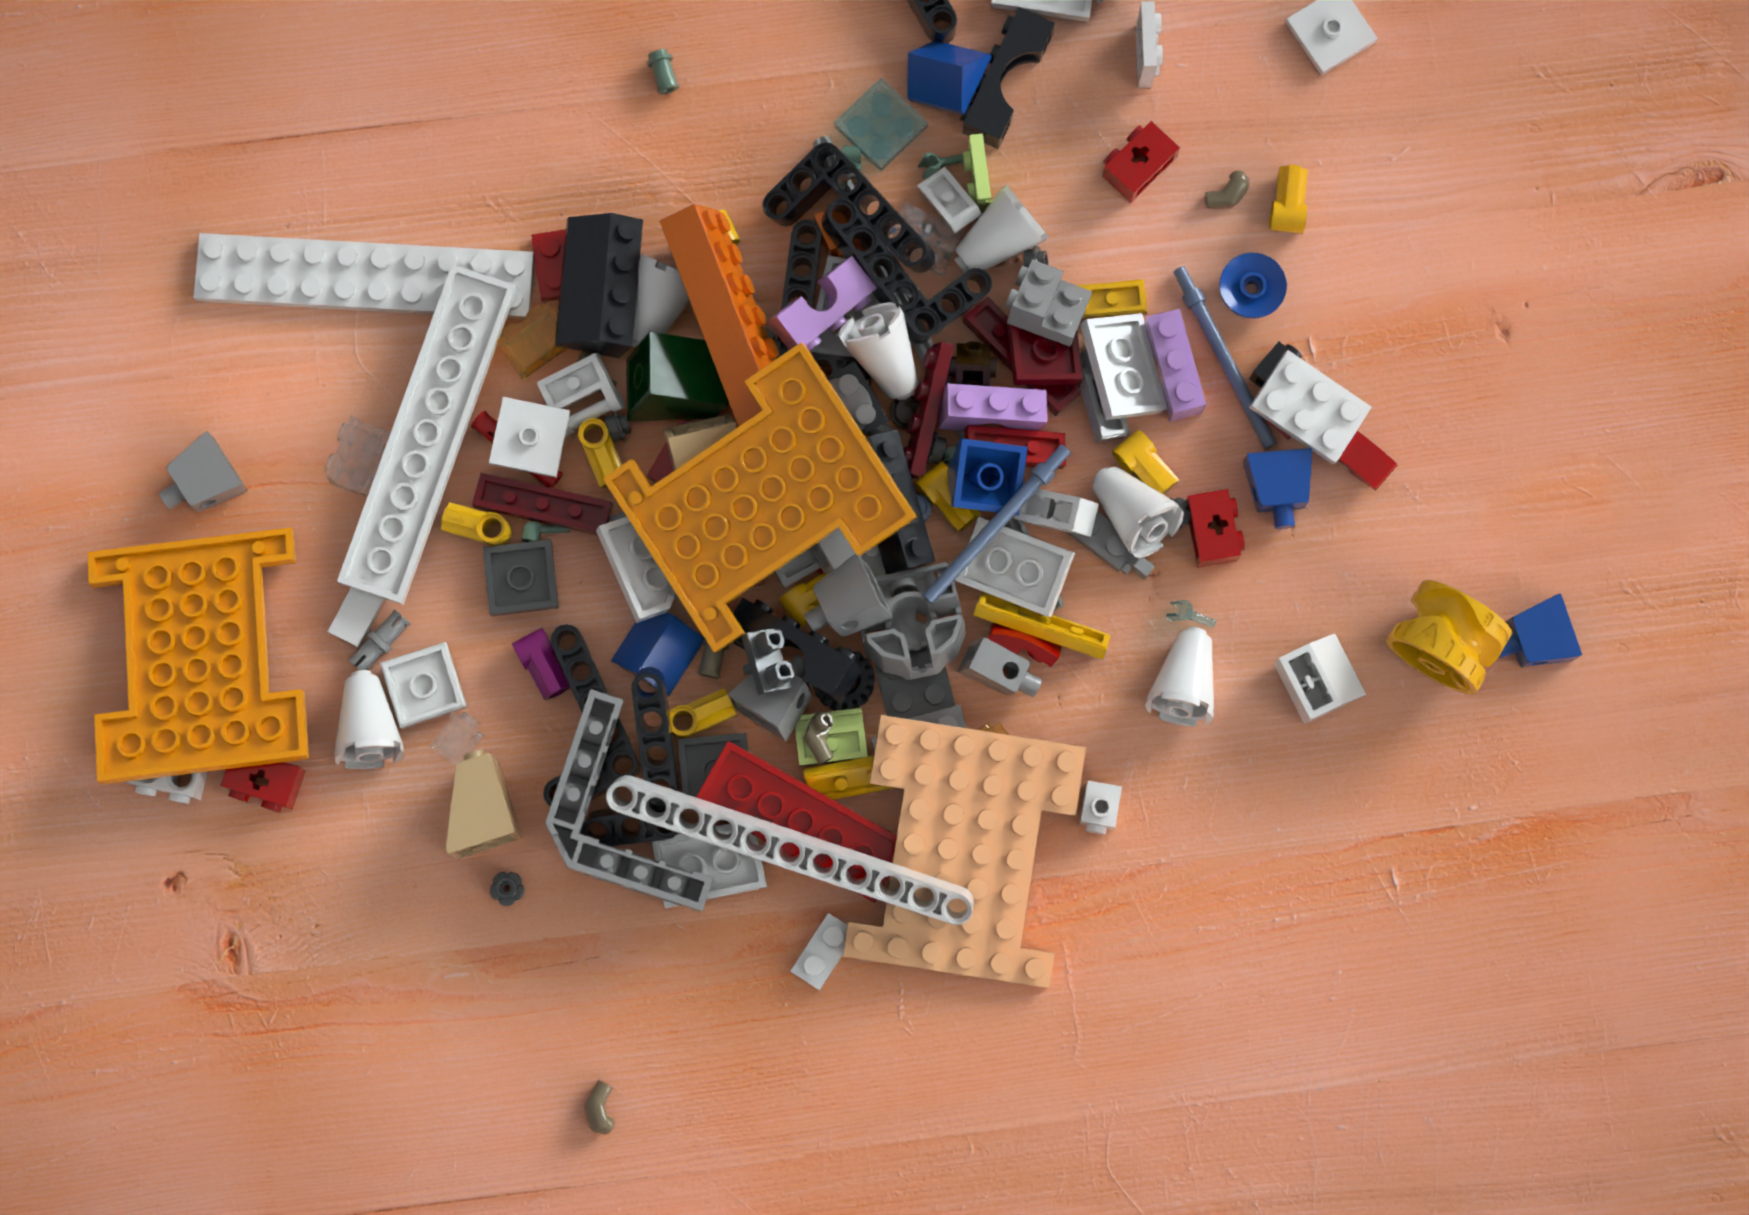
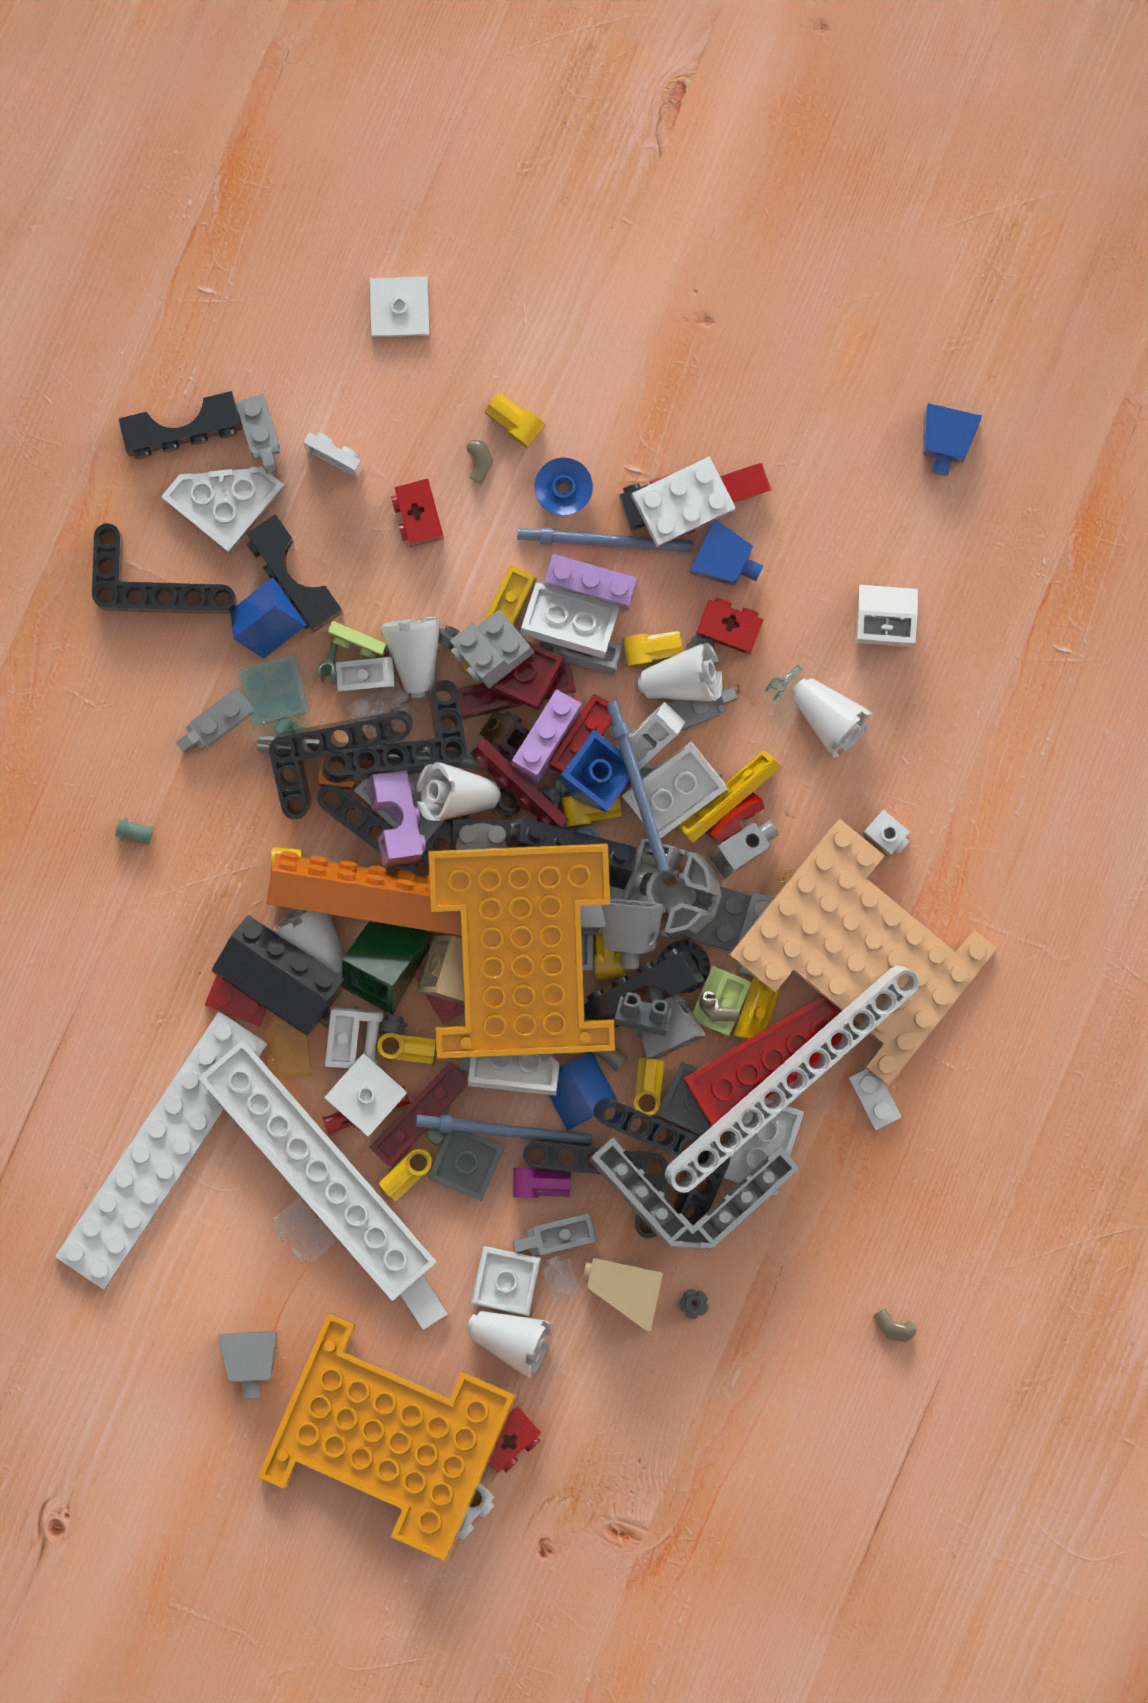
camera: 60 degrees left, 5 degrees up
(379, 641) = (453, 1295): light grey pin -> none
(498, 711) = (558, 1235): none -> light grey hinge
(547, 534) = (446, 1123): none -> sand blue bar
(817, 86) = (216, 721): none -> light grey hinge
(1450, 637) = (915, 505): yellow piece -> none

